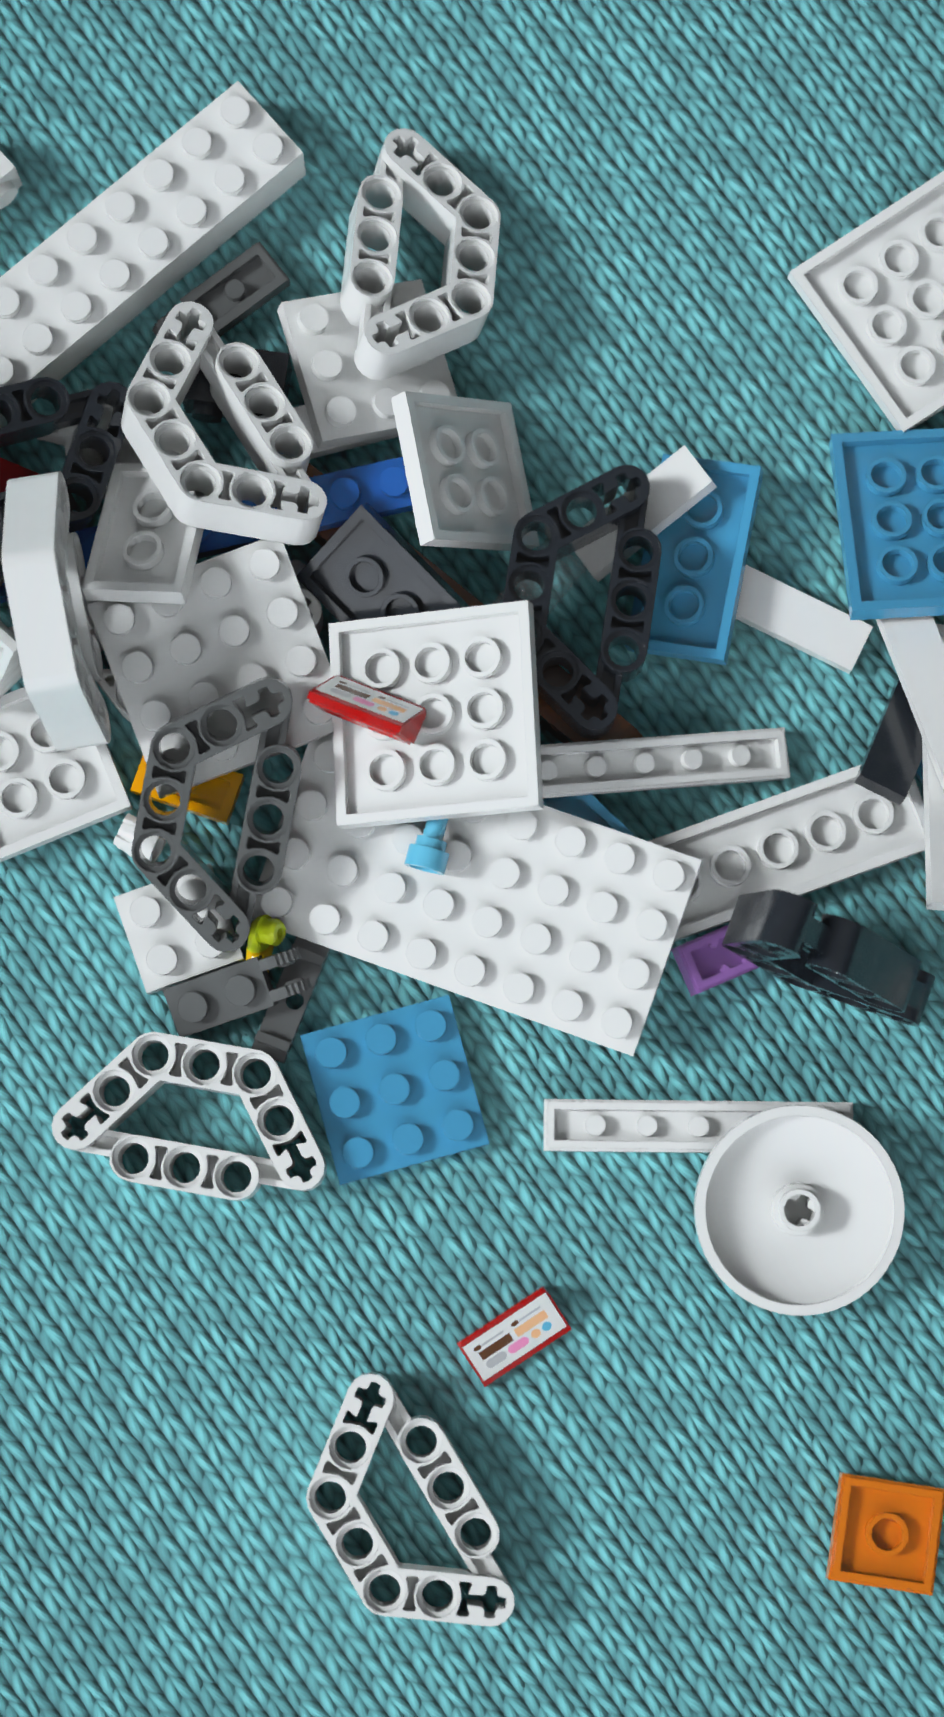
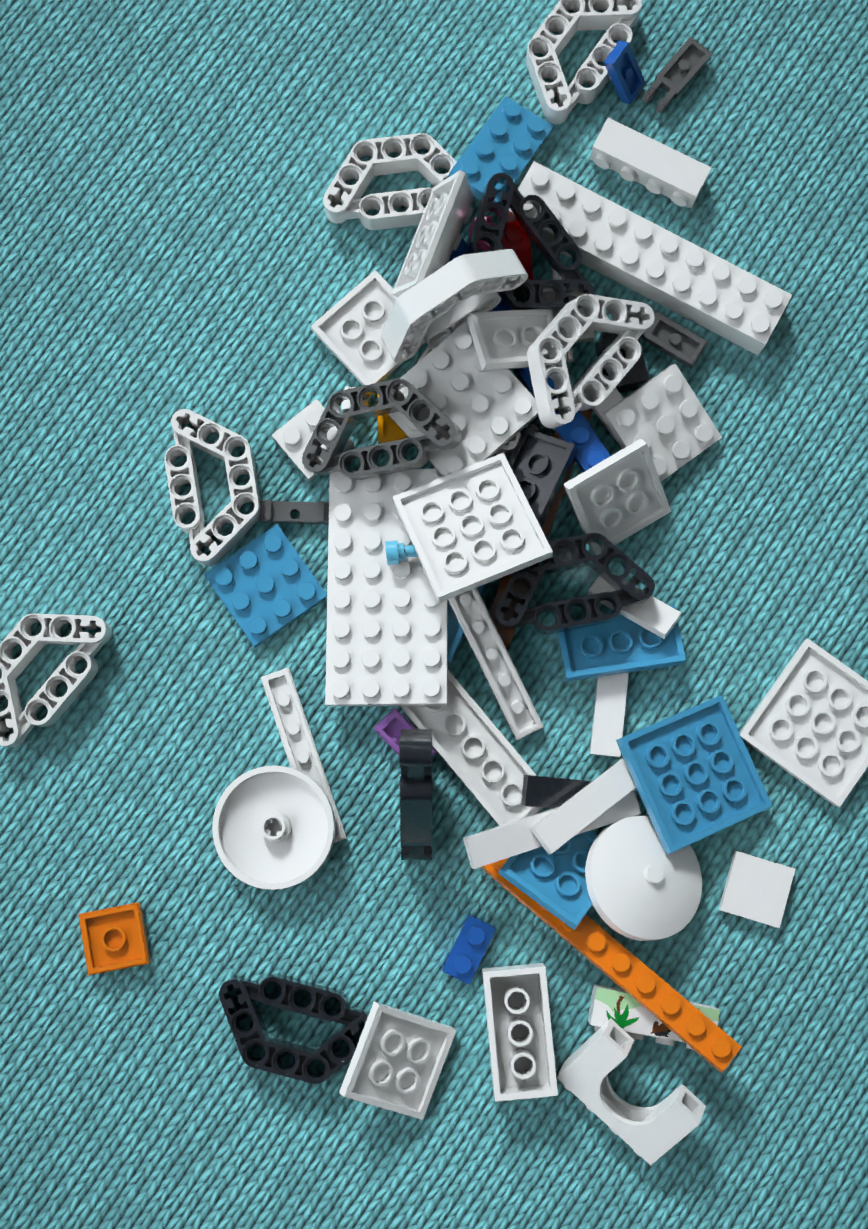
camera: 75 degrees right, 0 degrees up
(231, 993) = (286, 478): dark grey hinge -> none
(264, 935) = (322, 484): neon yellow arm -> none
(369, 708) = (461, 488): slope -> none
(447, 205) = (777, 407): white piece -> none
(514, 1336) = (154, 696): slope -> none

